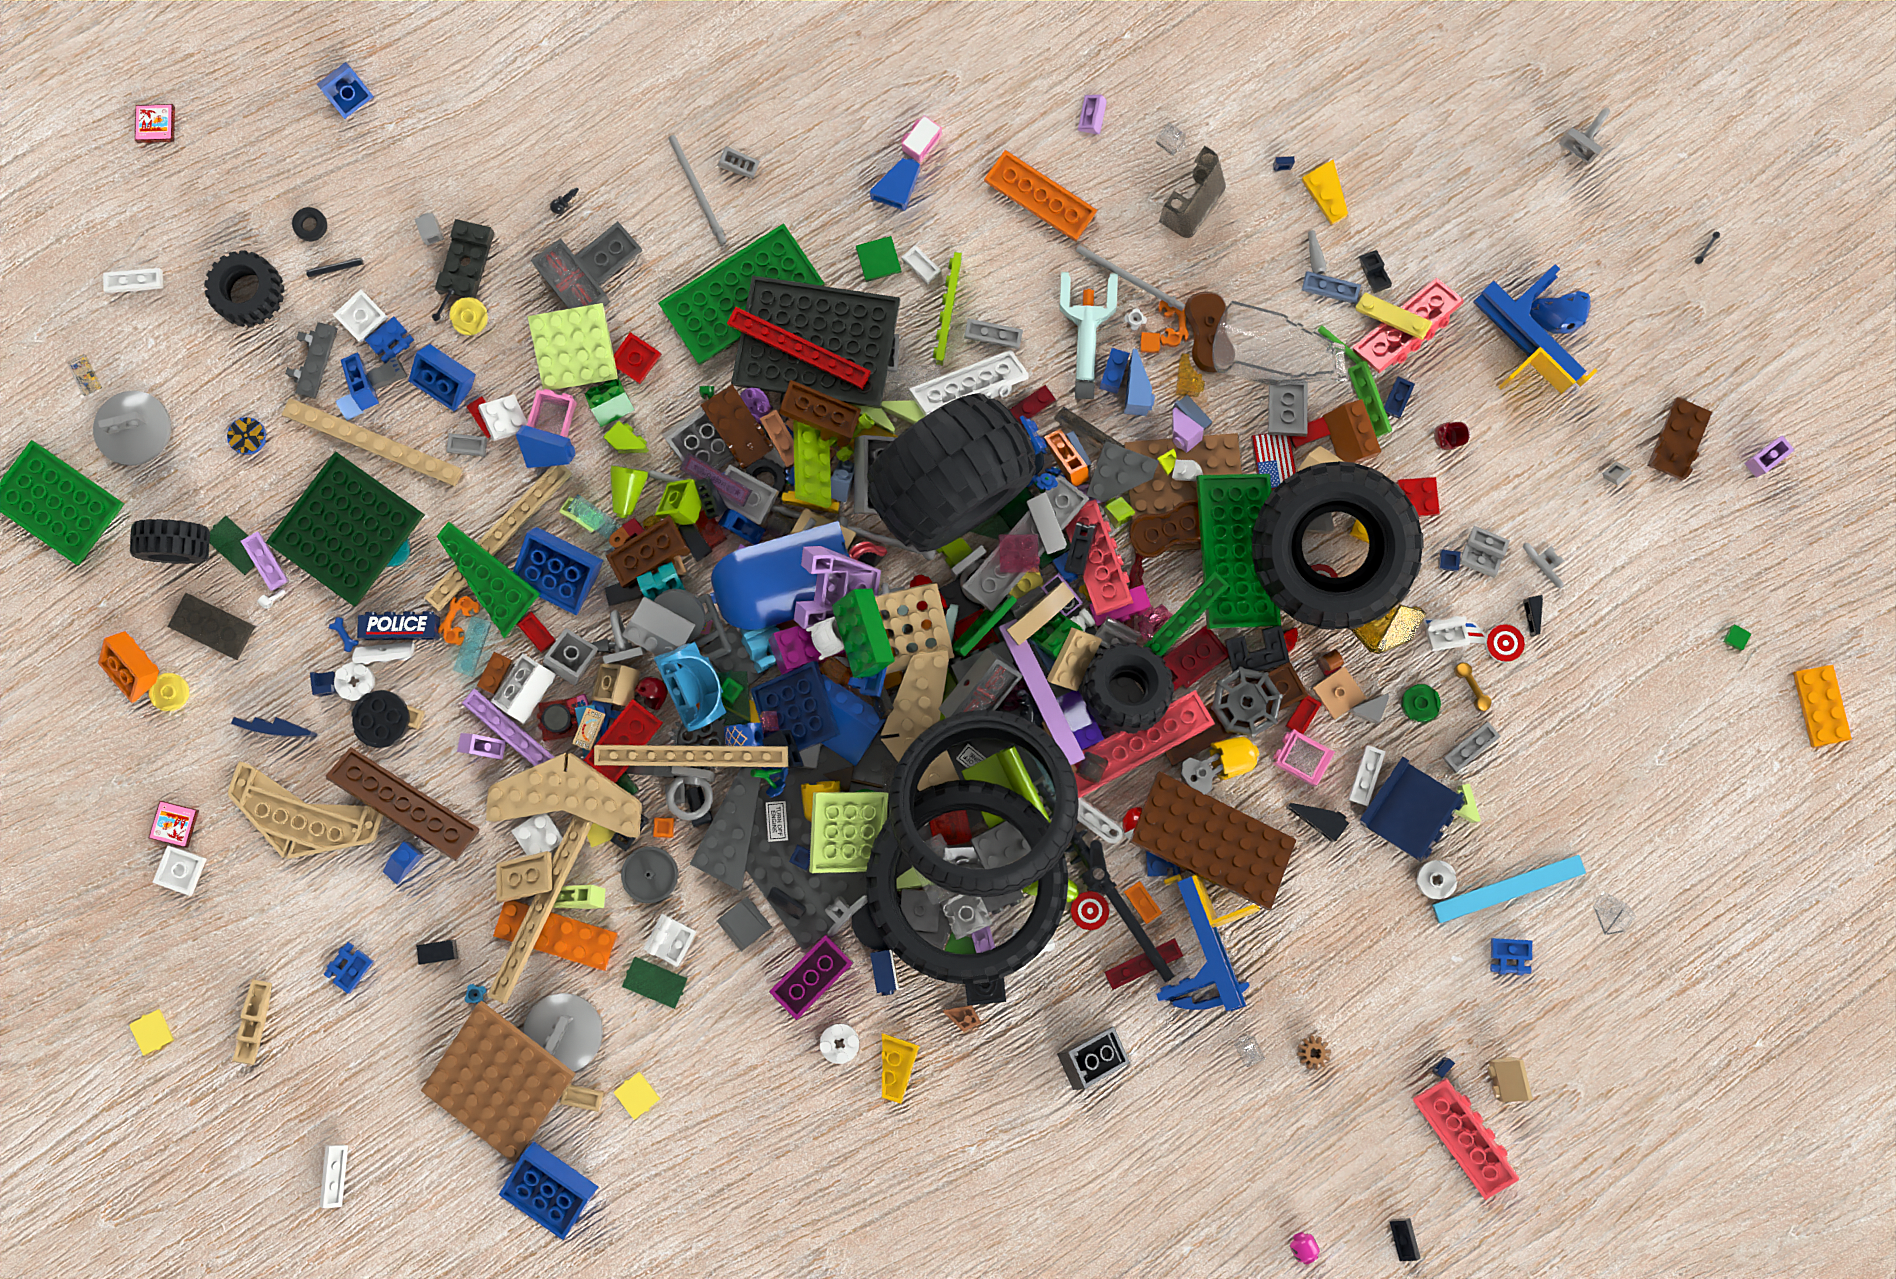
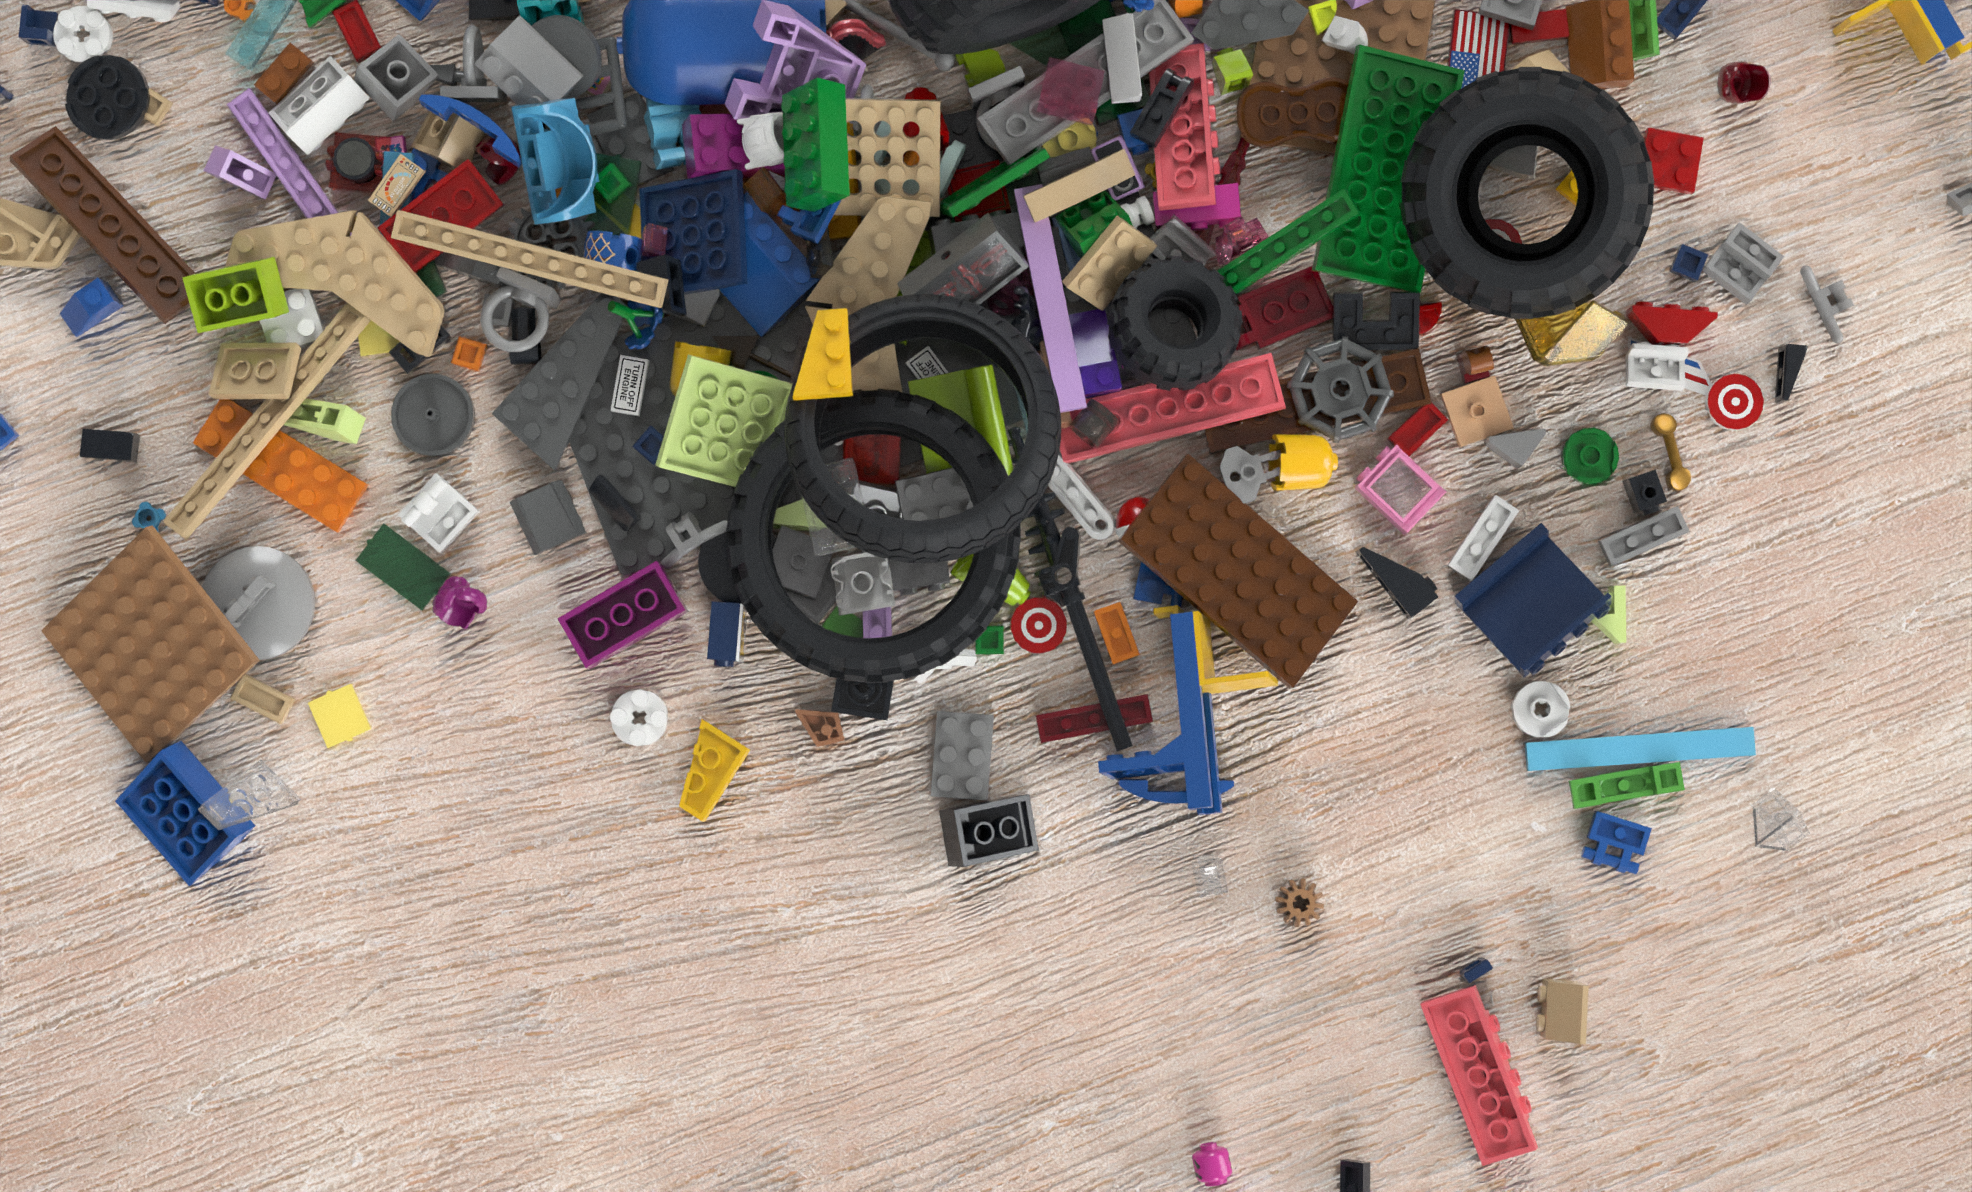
camera: 15 degrees right, 5 degrees up
(499, 829) = (236, 294): none -> lime brick
(590, 1168) = (248, 797): none -> clear wing
(608, 670) = (445, 106): none -> blue slope
(698, 997) = (458, 602): none -> magenta hair
(909, 773) = (827, 358): none -> yellow wing
(1062, 1012) = (962, 755): none -> light grey plate
(1063, 930) = (990, 641): none -> green tile
(1448, 603) = (1670, 322): none -> red slope
(1464, 718) = (1645, 492): none -> black brick
(1507, 915) = (1626, 784): none -> bright green slope

